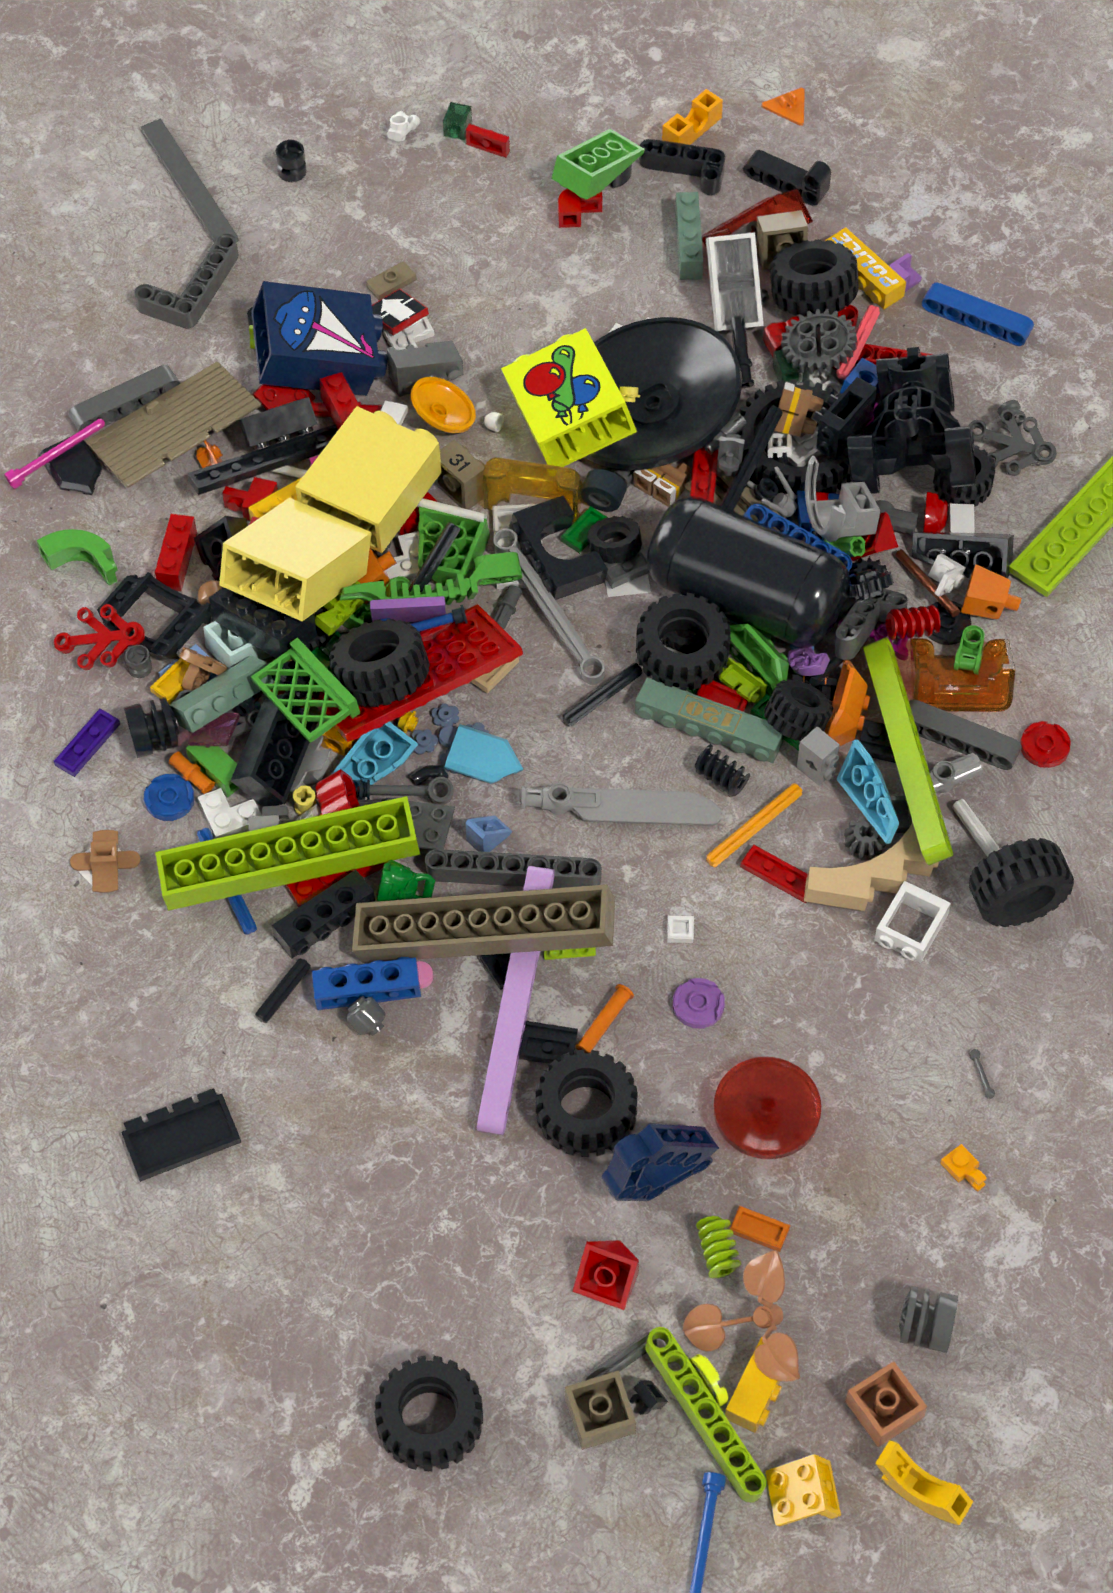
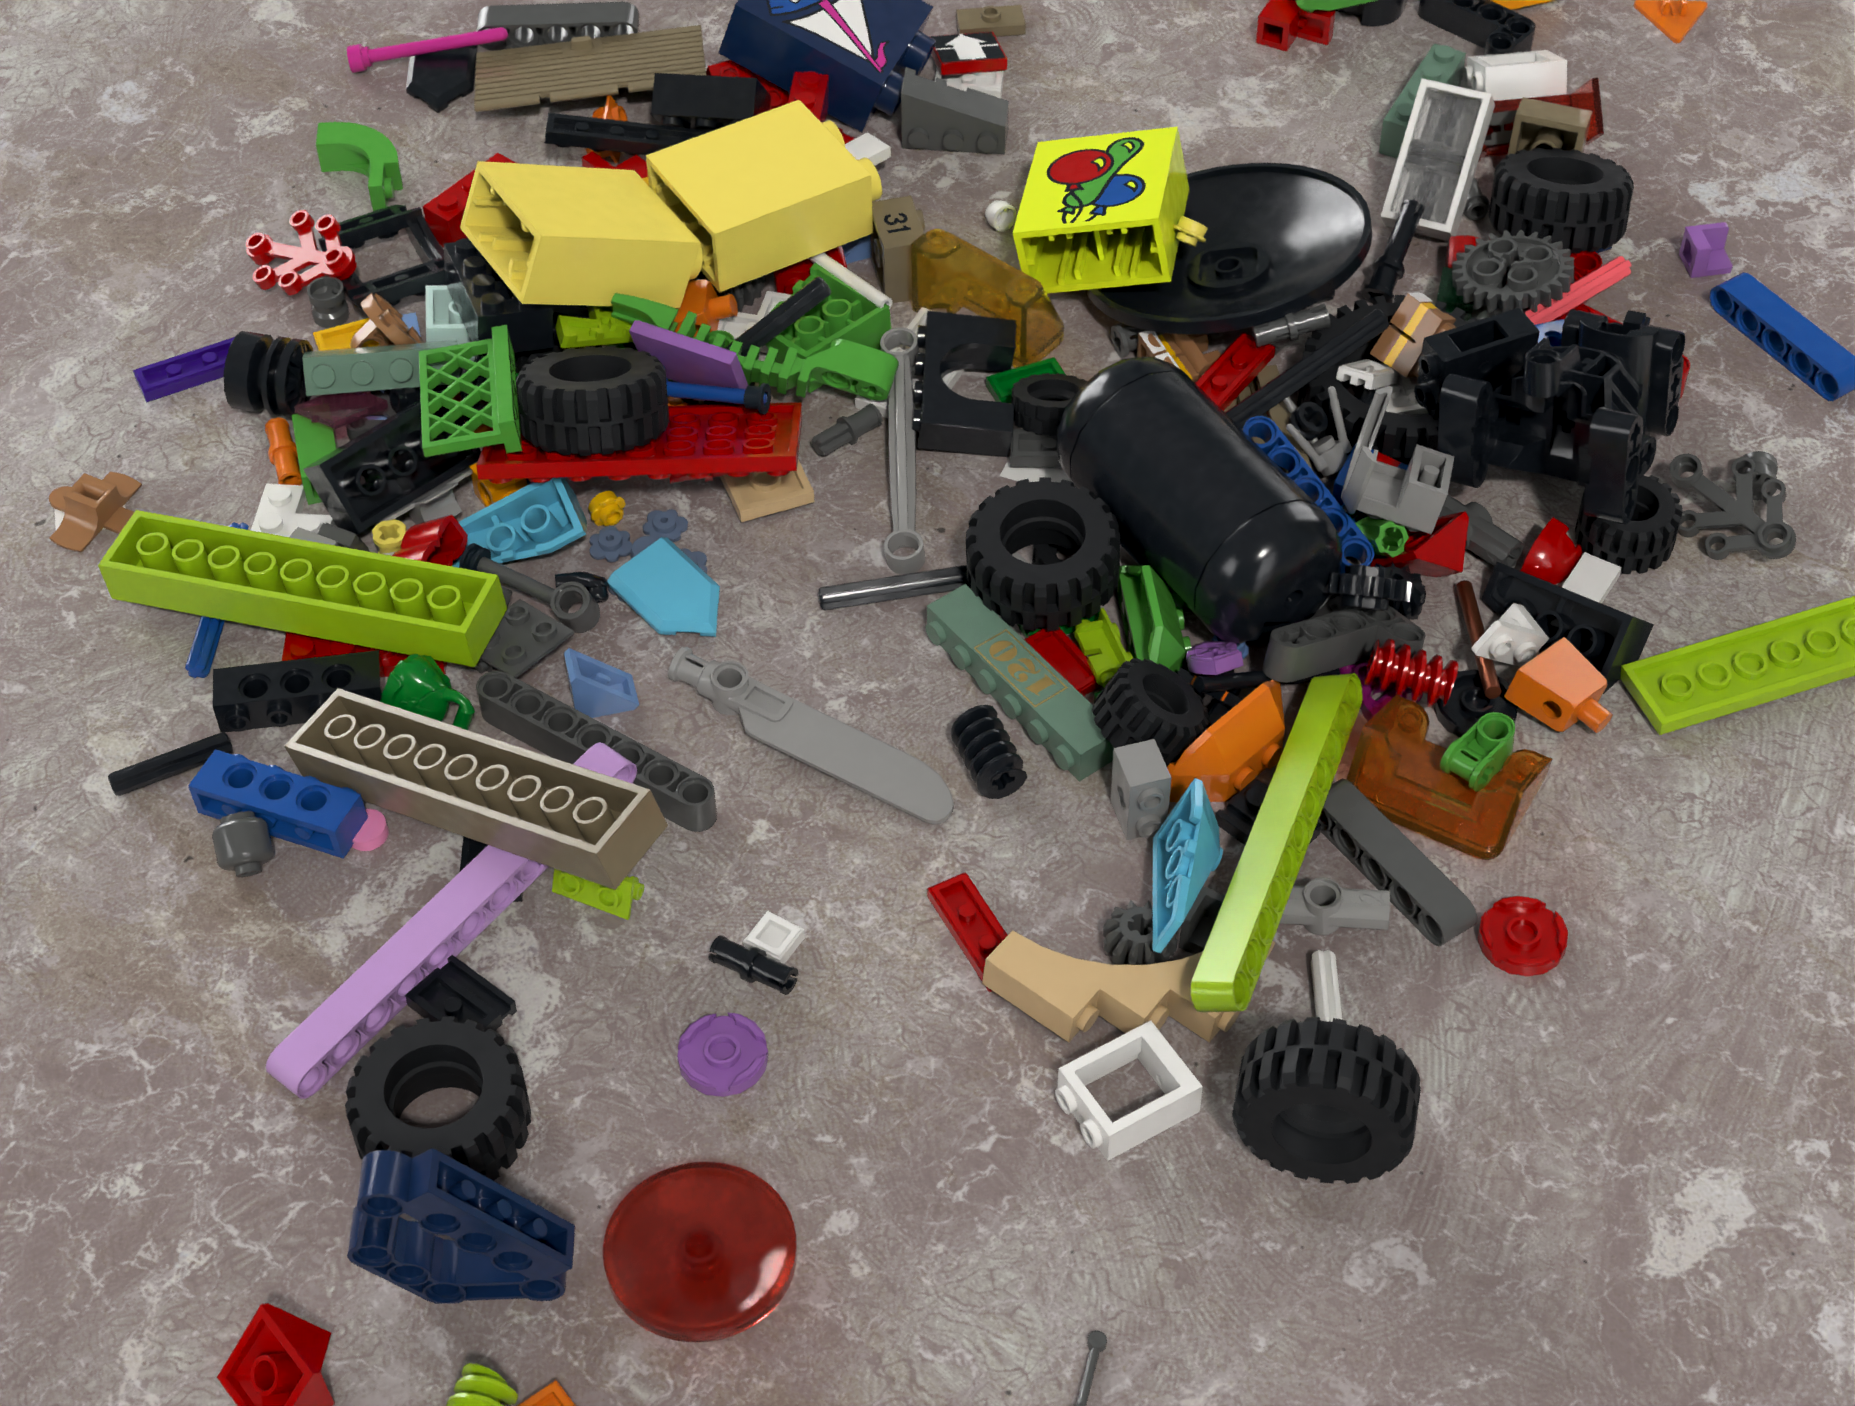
camera: 30 degrees right, 10 degrees down
(169, 797) = (235, 471): blue tile -> none
(443, 405) = (940, 166): light orange dish -> none
(603, 490) = (1080, 339): black wheel -> none
(605, 1018) = (566, 1009): orange pin -> none
(682, 948) = (753, 965): none -> black pin
(730, 455) = (1278, 350): dark grey hips -> none
(733, 195) = (1517, 74): none -> white window
(754, 825) = (987, 847): light orange axle -> none
(786, 176) = (1626, 99): black beam -> none
(874, 275) = (1657, 232): yellow brick -> none

